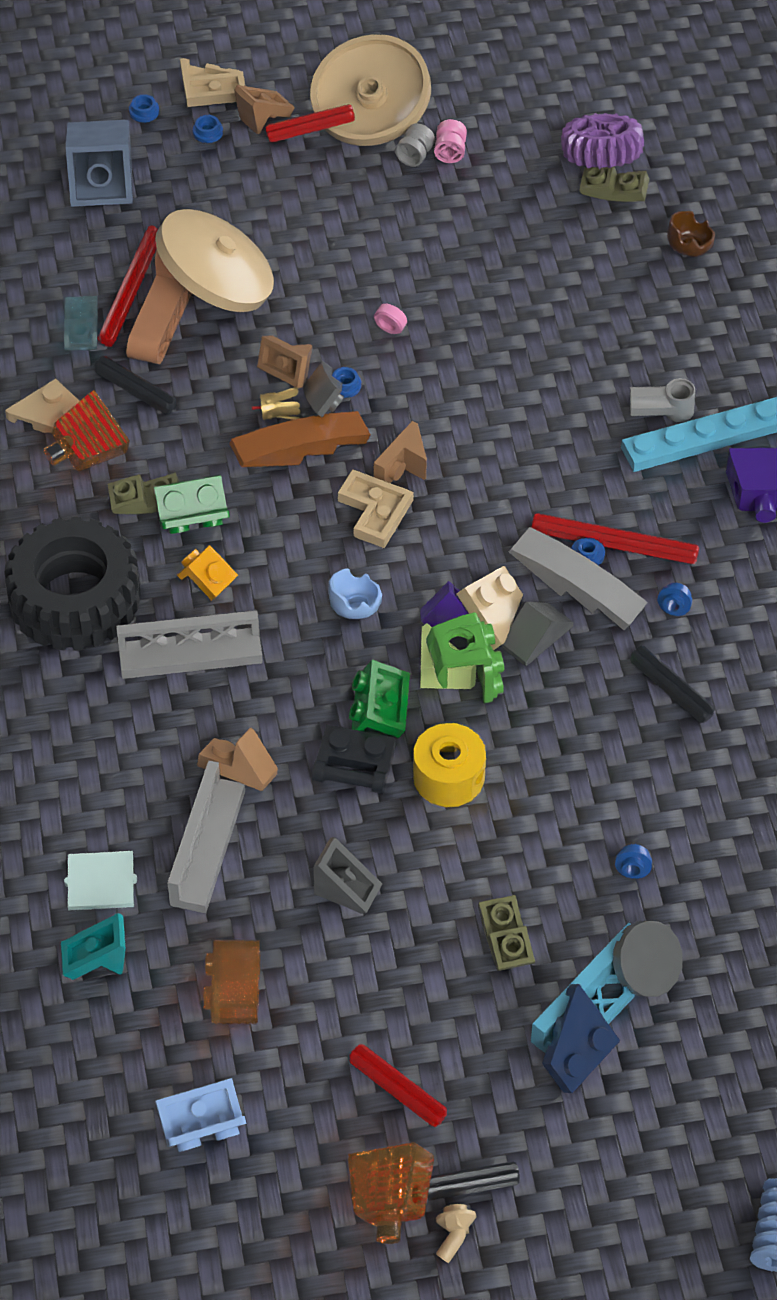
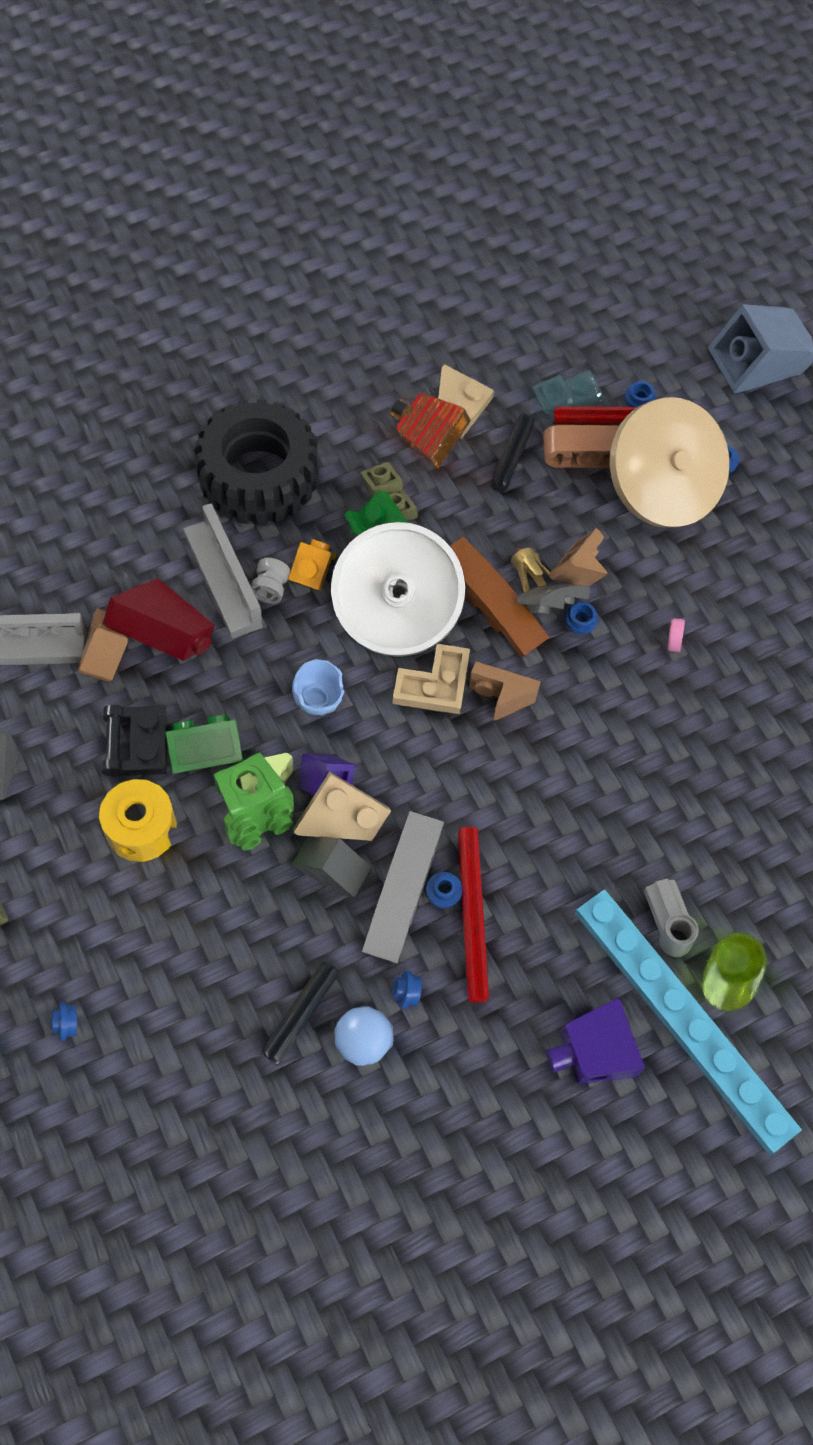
camera: 70 degrees right, 10 degrees up
(110, 269) = (639, 394): none -> blue plate
(210, 603) = (271, 576): none -> light grey wheel
(234, 700) = (160, 620): none -> dark red slope
(271, 503) = (391, 559): none -> white dish
(707, 642) = (363, 1035): none -> light blue hair
(720, 371) = (734, 971): none -> clear neon green cap

